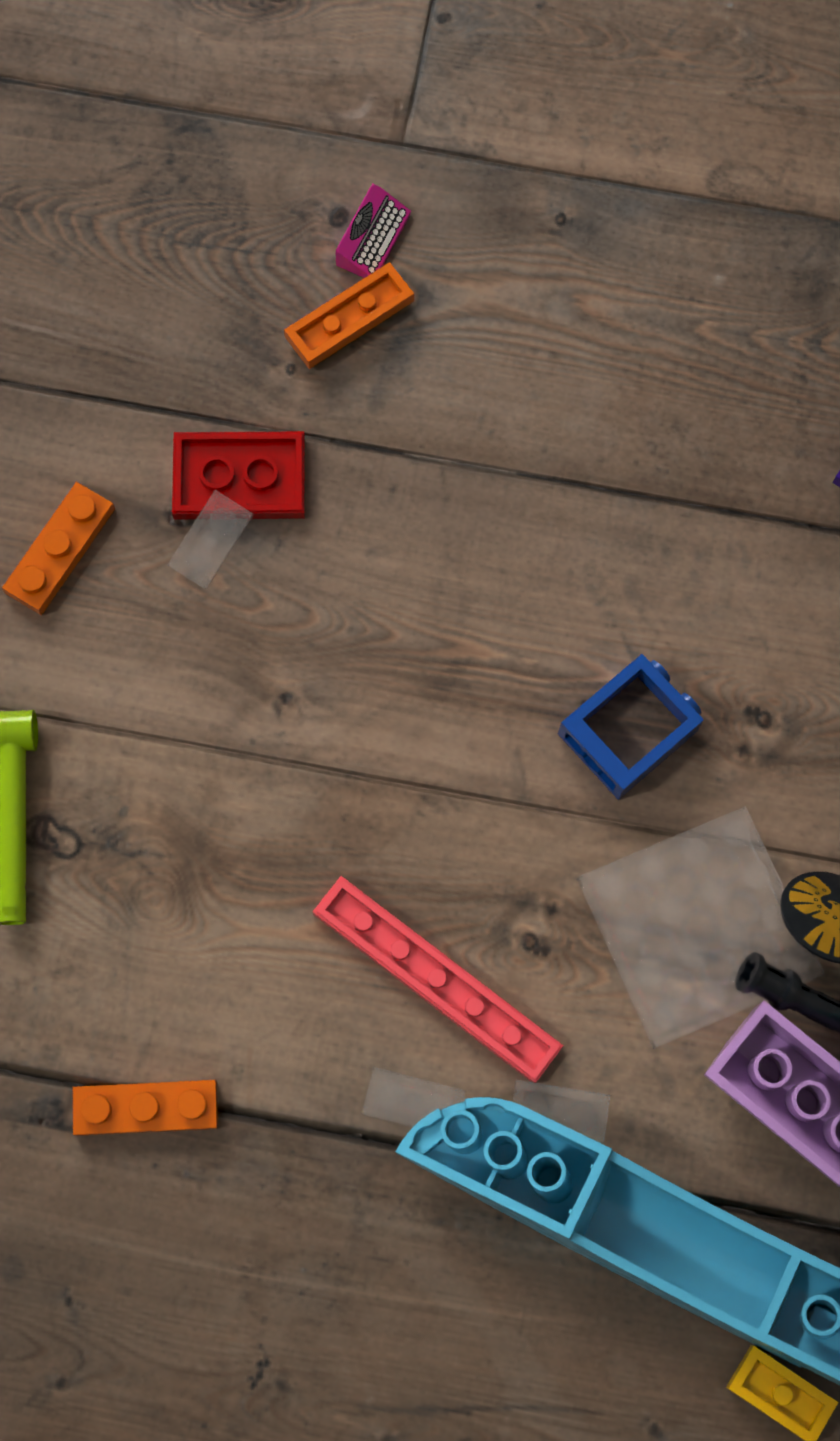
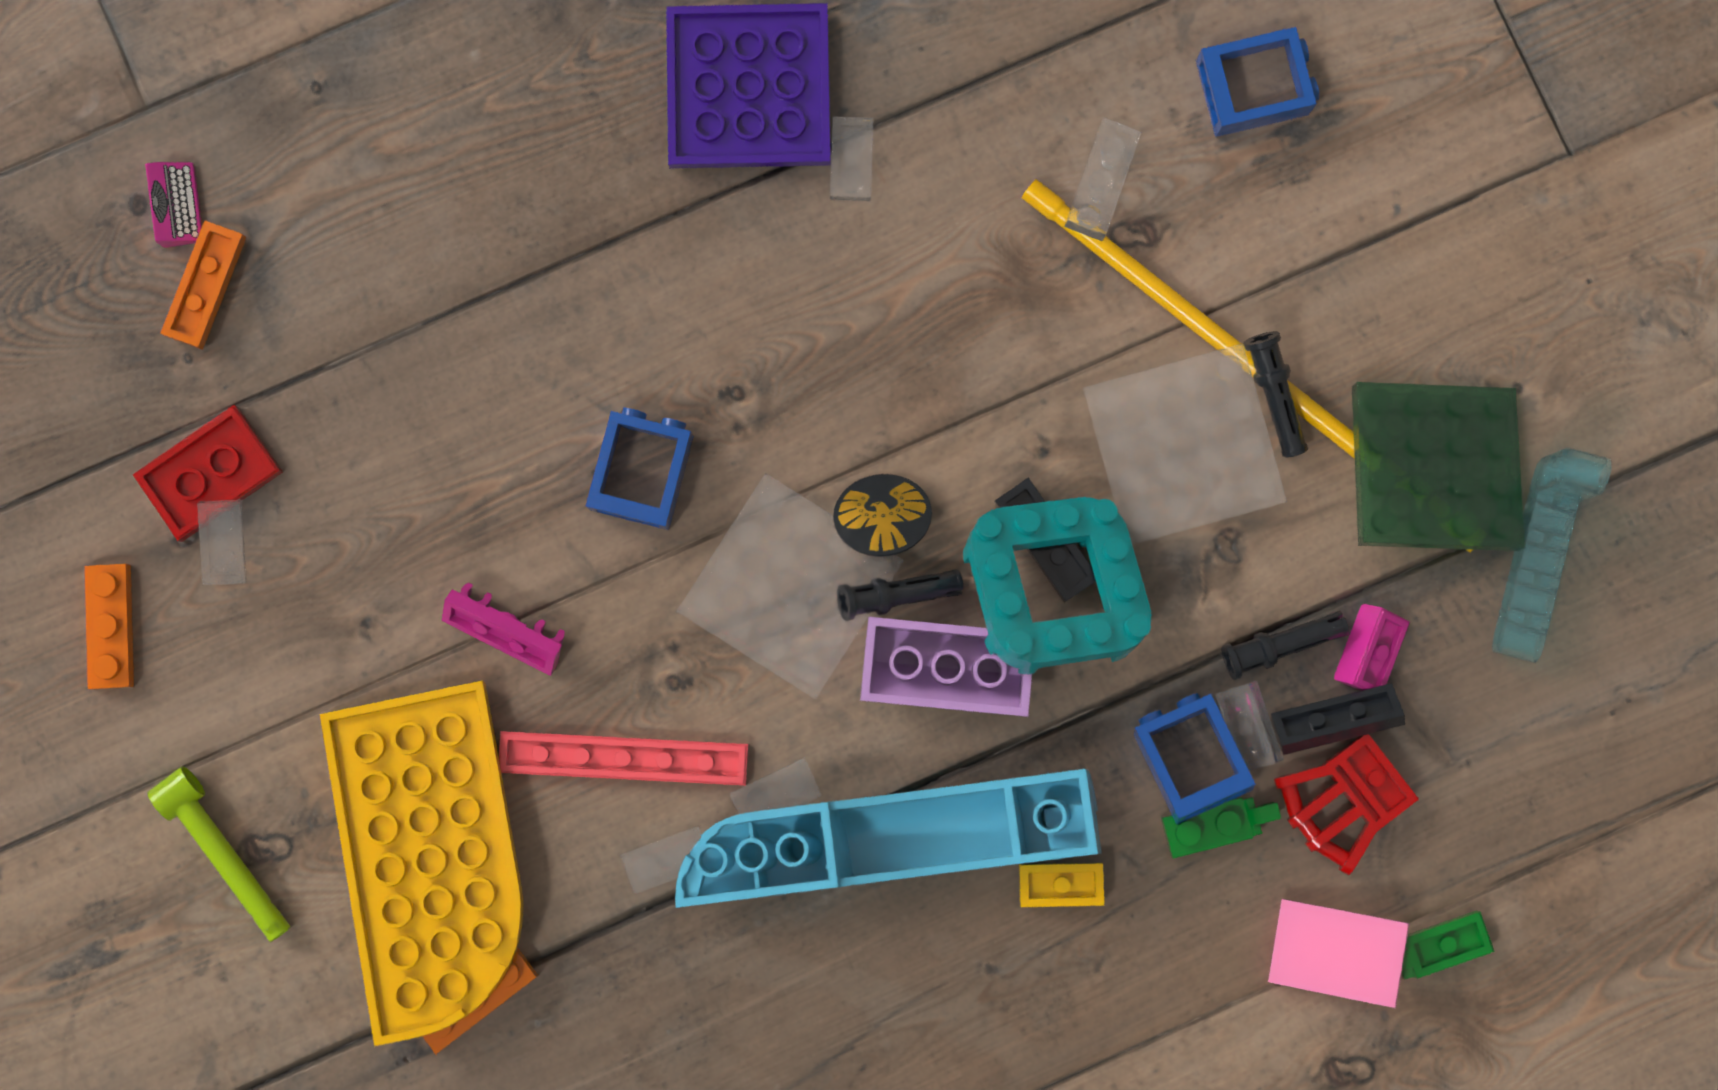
camera: 30 degrees left, 10 degrees up
(194, 944) = (425, 855): none -> yellow plate
(406, 785) = (502, 630): none -> dark pink plate

